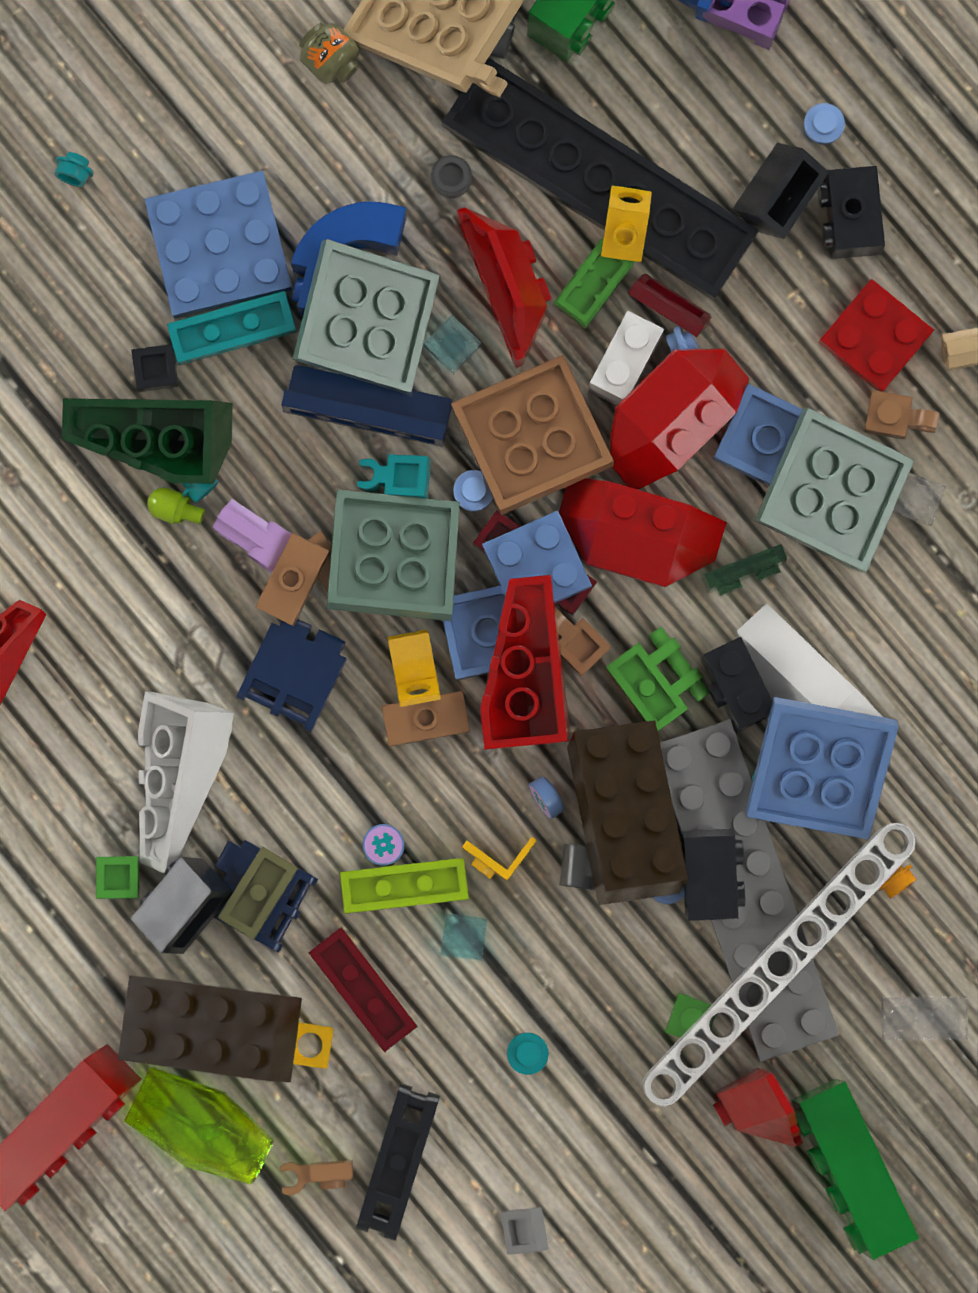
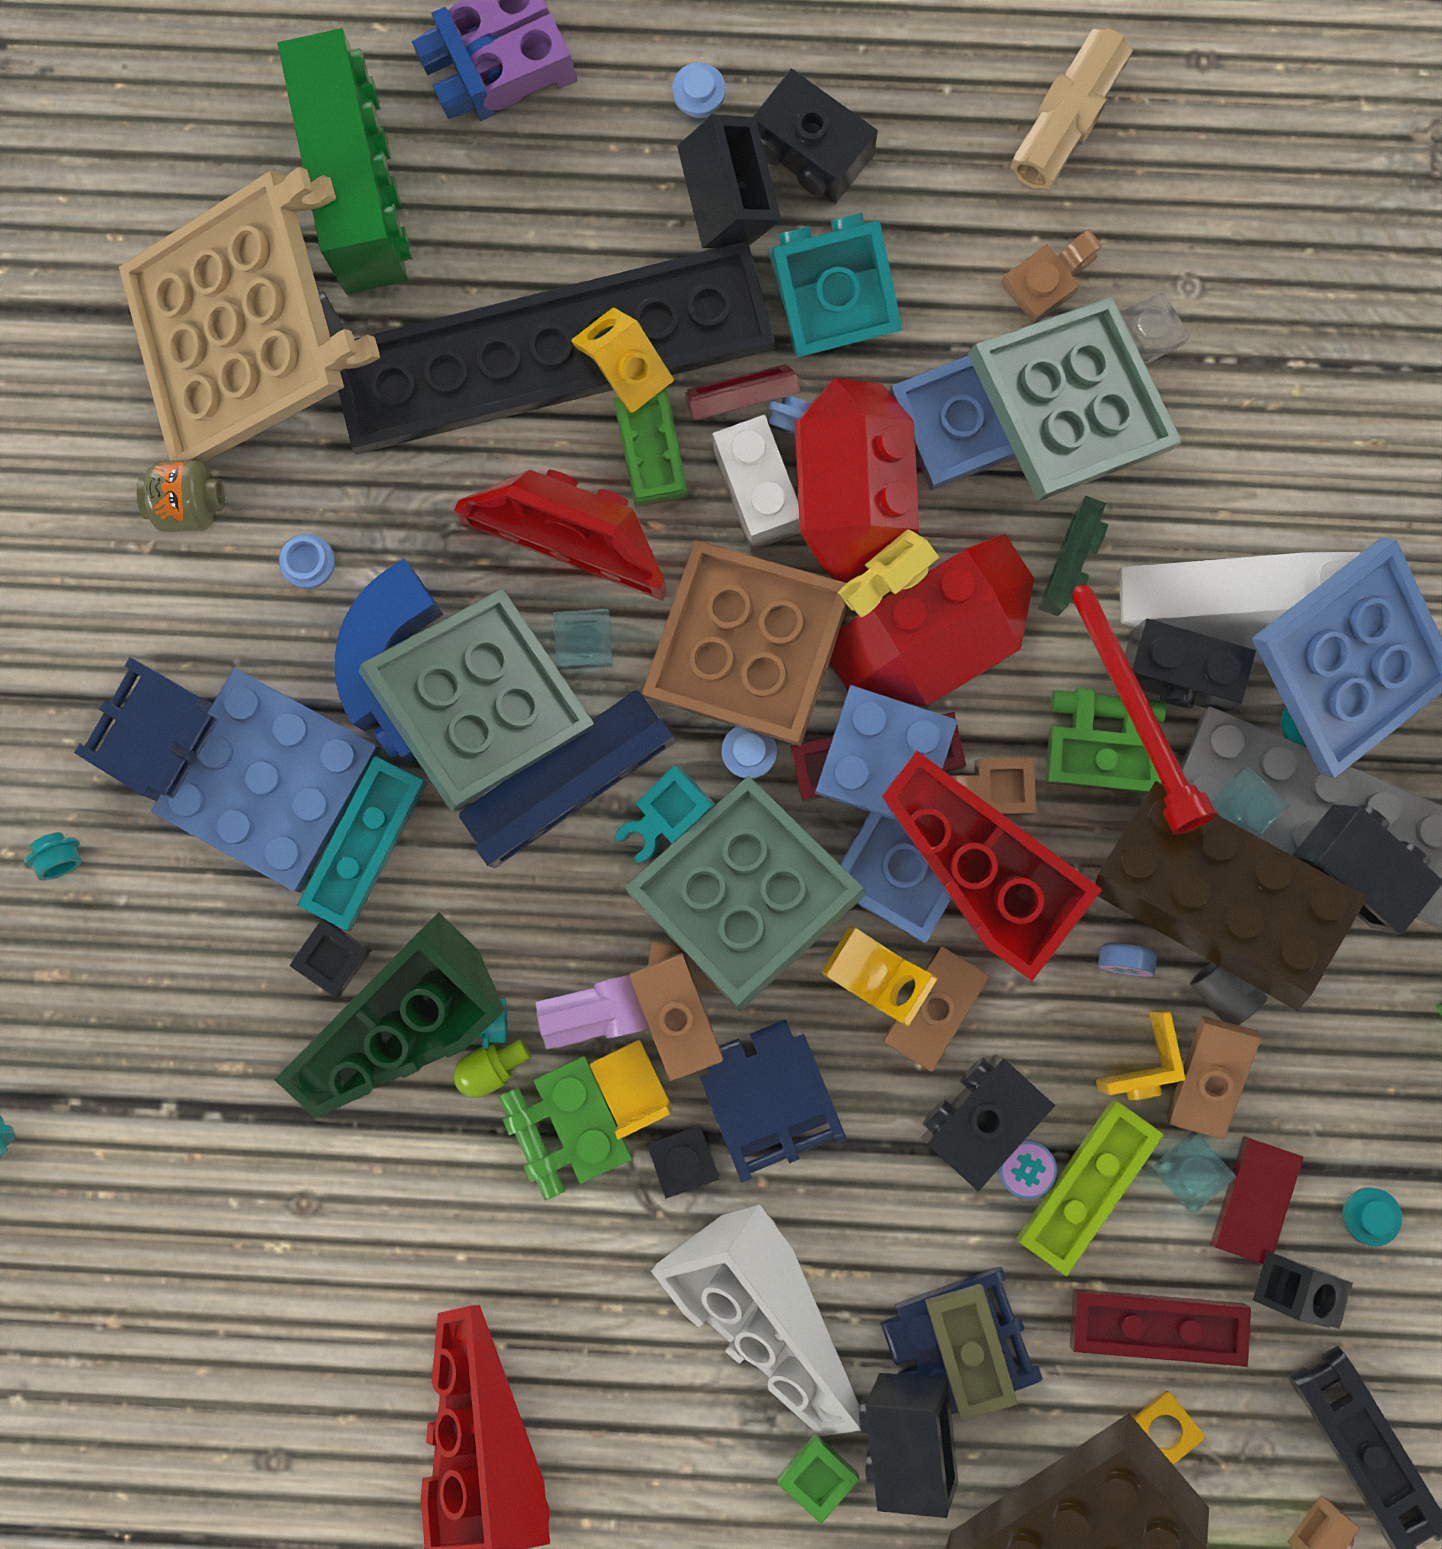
camera: 40 degrees left, 0 degrees up
(186, 158) = (149, 732): none -> dark blue plate
(191, 582) = (580, 1119): none -> bright green plate
(219, 656) = (683, 1161): none -> black plate
(233, 592) = (631, 1088): none -> yellow bracket
(357, 154) = (307, 561): none -> light blue plate
(388, 796) = (985, 1120): none -> black brick
(451, 176) = (415, 490): dark grey tile -> none
(452, 1047) = (1302, 1291): none -> black leg
(479, 984) = (1256, 1200): none -> dark red tile
(524, 898) = (1214, 1077): none -> medium nougat plate
(643, 475) = (894, 568): none -> light yellow plate
(650, 741) = (1185, 805): none -> red piece
(689, 784) = (1249, 802): none -> clear light blue plate
(778, 301) = (835, 285): none -> teal plate
(876, 336) = (952, 227): red plate -> none

